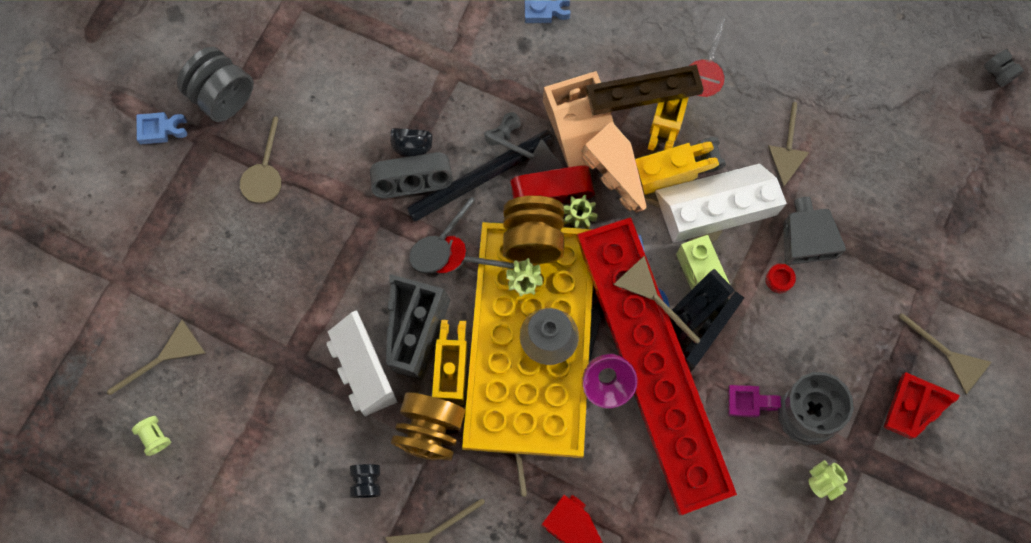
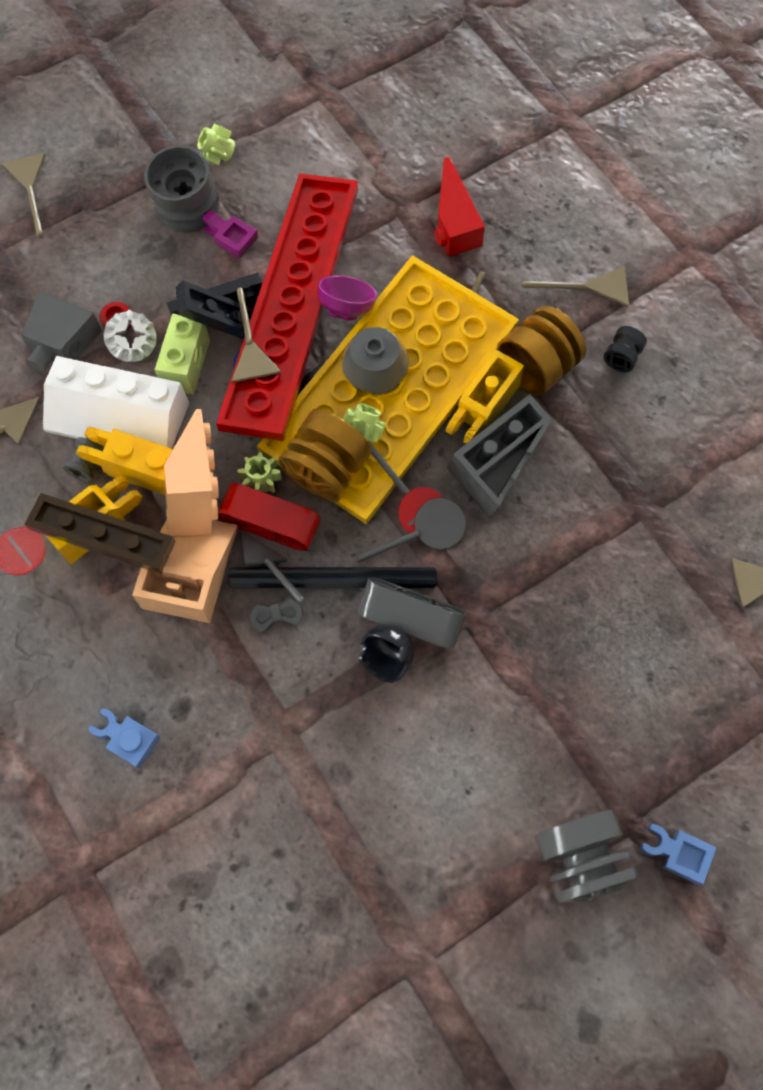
camera: 145 degrees left, 5 degrees down
(262, 182) = (583, 717): dark tan piece -> none
(360, 365) = (575, 443): white slope -> none
(754, 277) = (118, 345): none -> white gear
(916, 405) = (95, 160): red wing -> none

